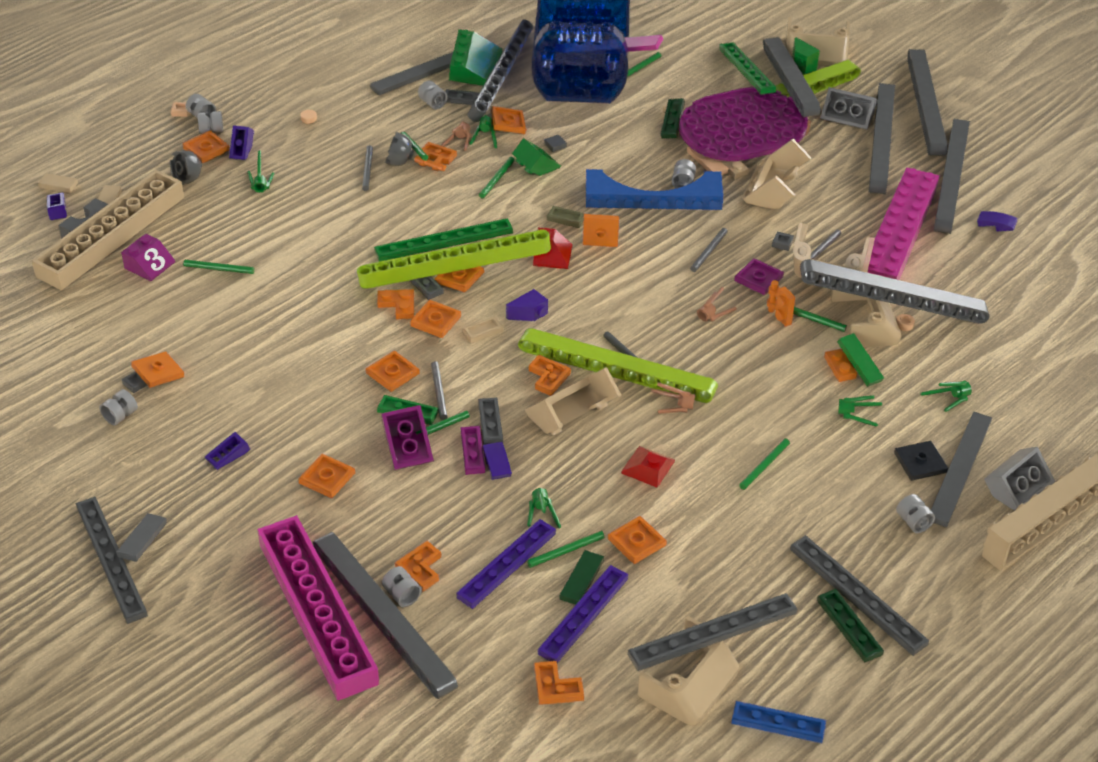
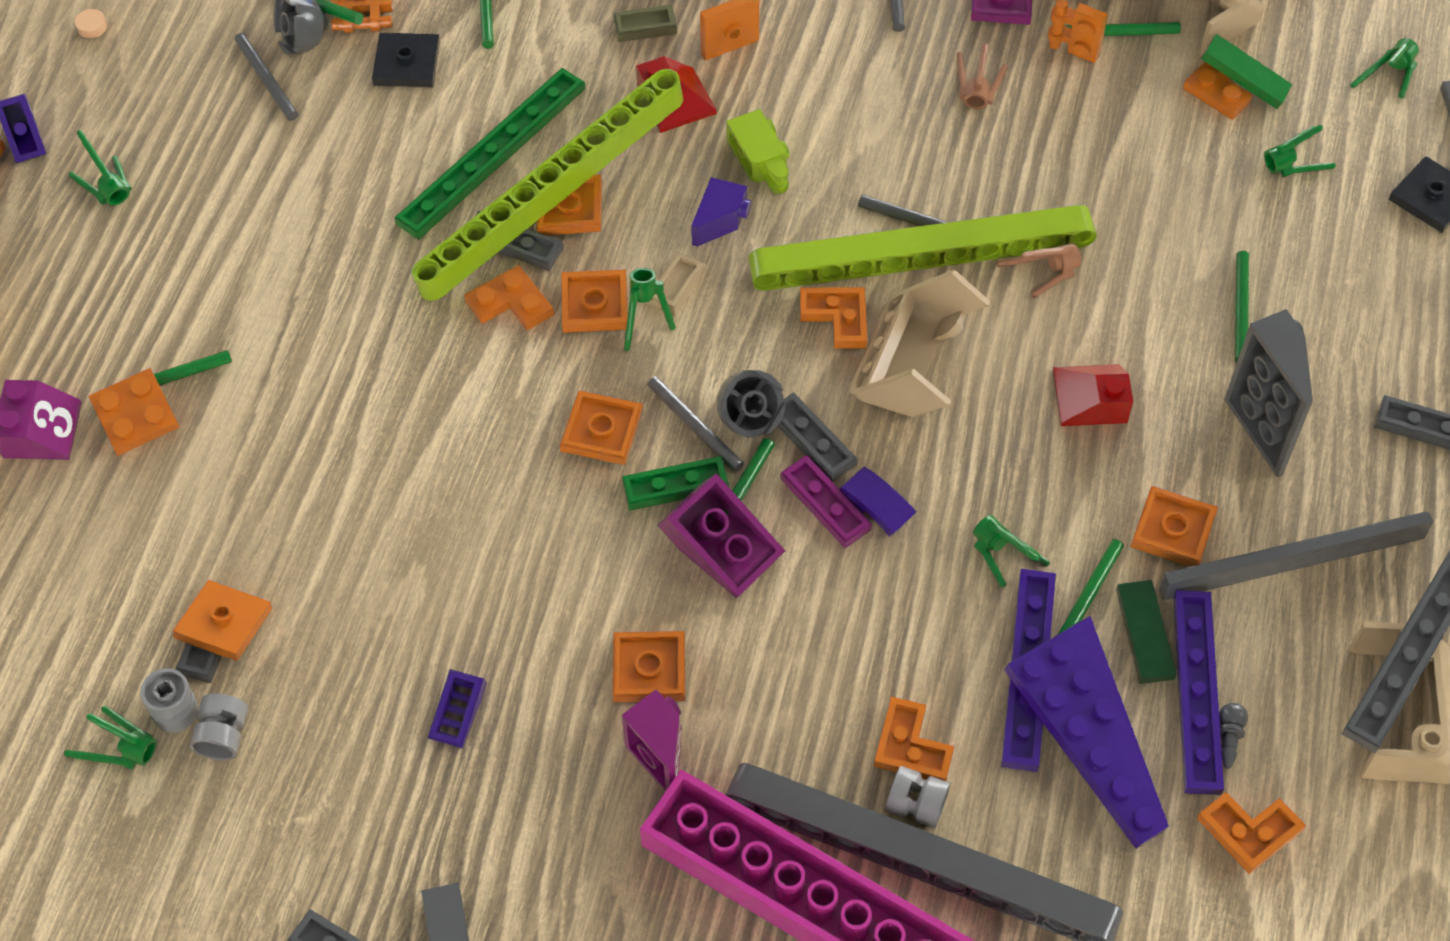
camera: 30 degrees left, 15 degrees up
(78, 399) = (134, 744): none -> green plant
(105, 384) = (169, 700): none -> light grey wheel
(192, 273) = (133, 411): none -> orange plate
(301, 497) = (654, 736): none -> magenta slope
(437, 186) = (406, 59): none -> black plate
(456, 317) = (642, 289): none -> green plant
(467, 388) = (751, 403): none -> dark grey cylinder
(515, 590) = (1082, 709): none -> dark purple wing
(572, 290) = (759, 149): none -> lime hinge
(590, 635) = (1232, 720): none -> dark grey bar
(689, 580) = (1297, 555): none -> dark grey tile
(733, 489) = (1272, 387): none -> dark grey slope

